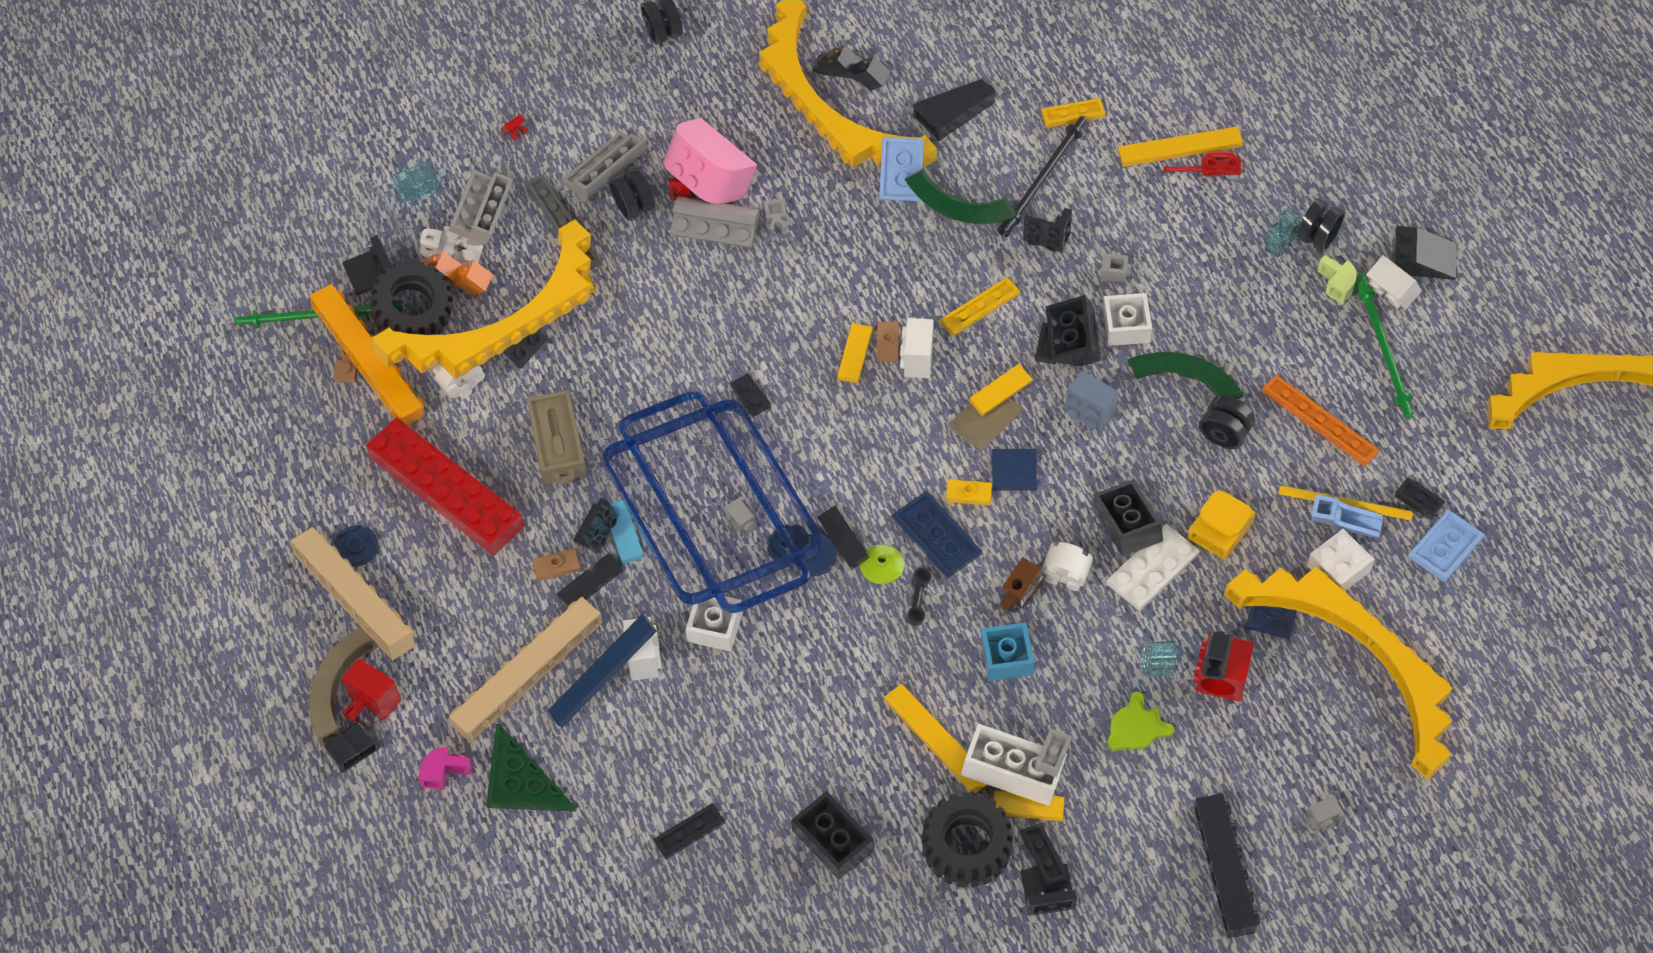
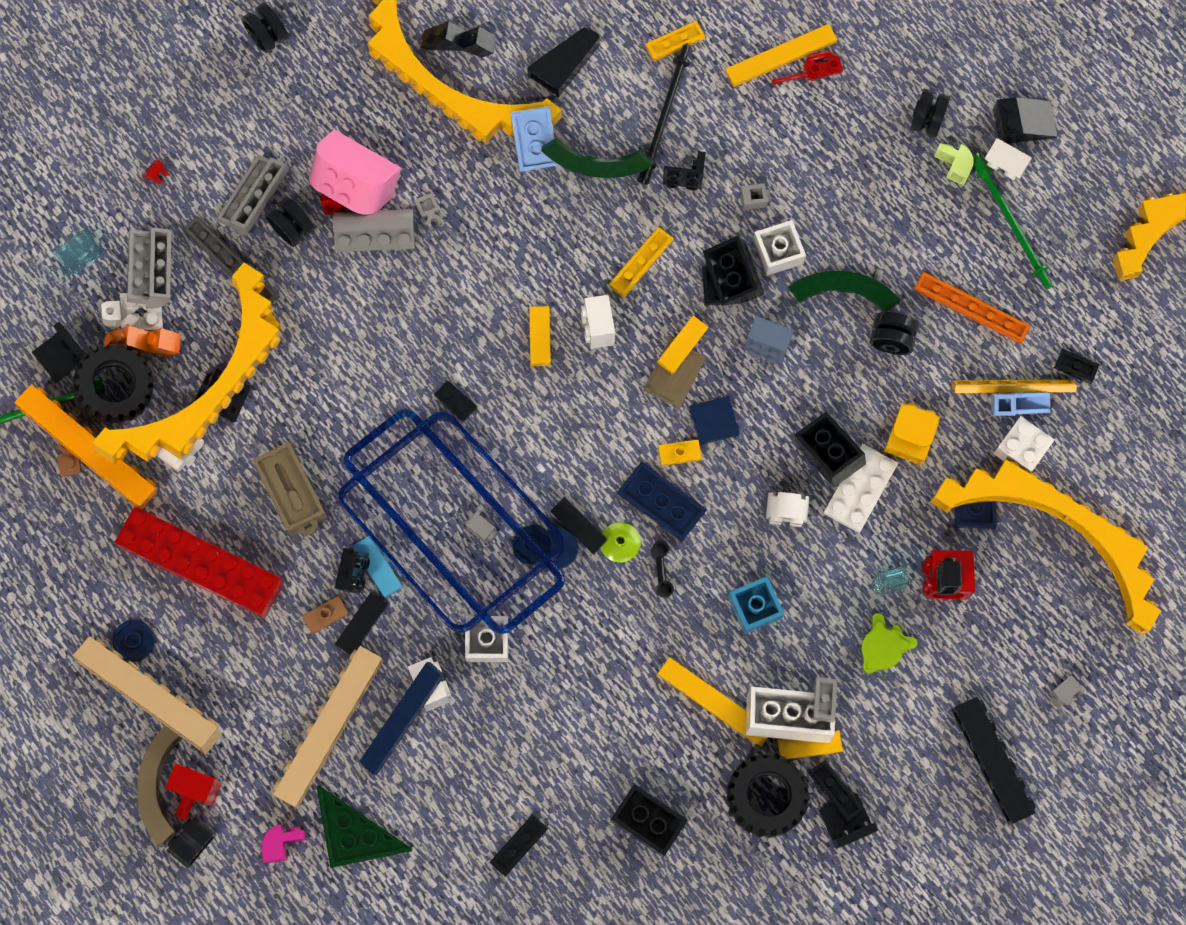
camera: 20 degrees left, 15 degrees up
(887, 341) = (566, 317): medium nougat plate -> none
(1021, 585) = (755, 530): reddish brown torso -> none
(1283, 232) = (897, 126): clear light blue brick -> none
(1446, 545) = (1108, 405): light blue tile -> none

